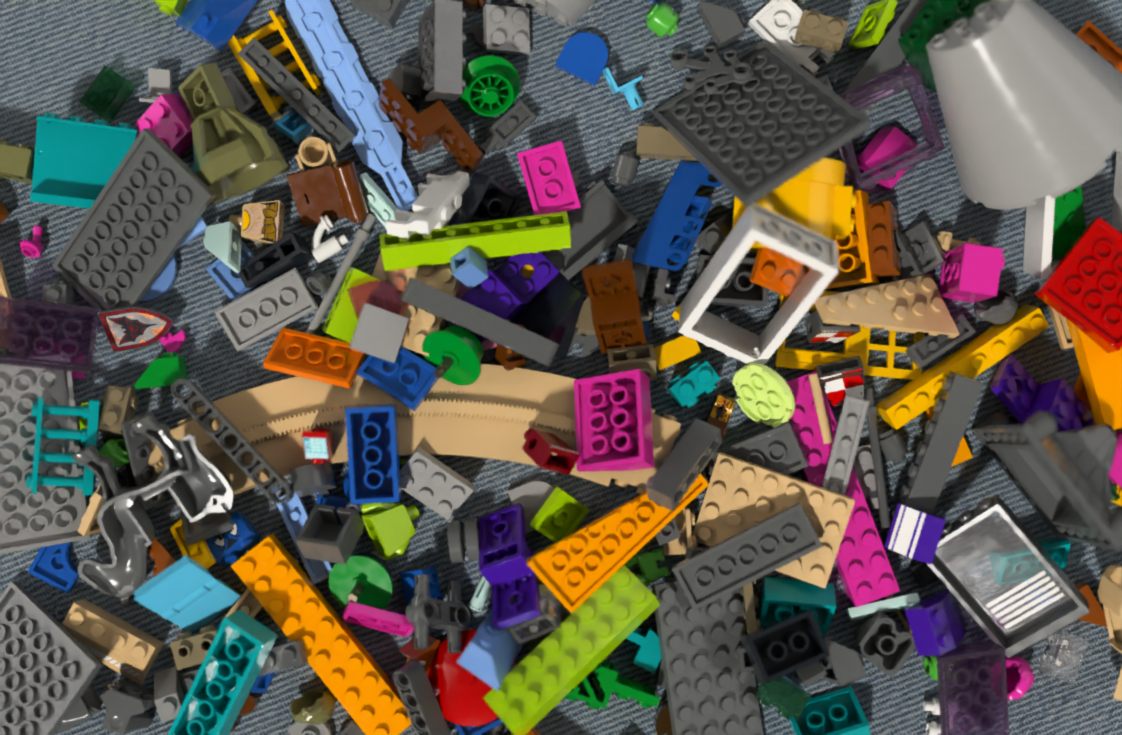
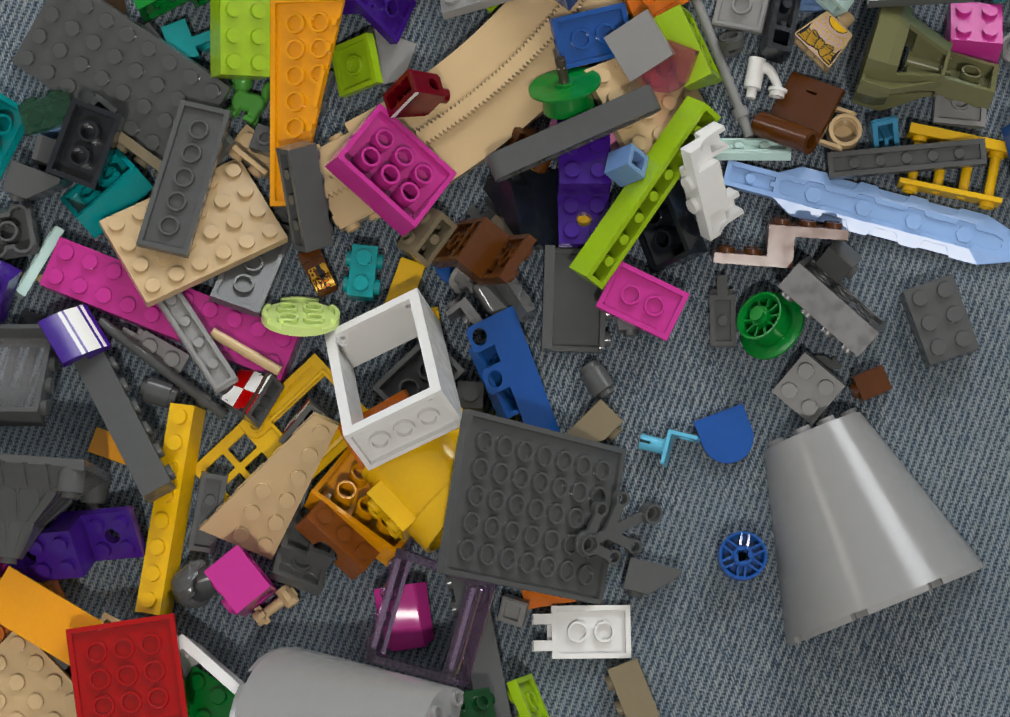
camera: 140 degrees right, 5 degrees down
(662, 19) = (698, 529): bright green head -> none
(821, 31) = (556, 652): dark tan brick -> none

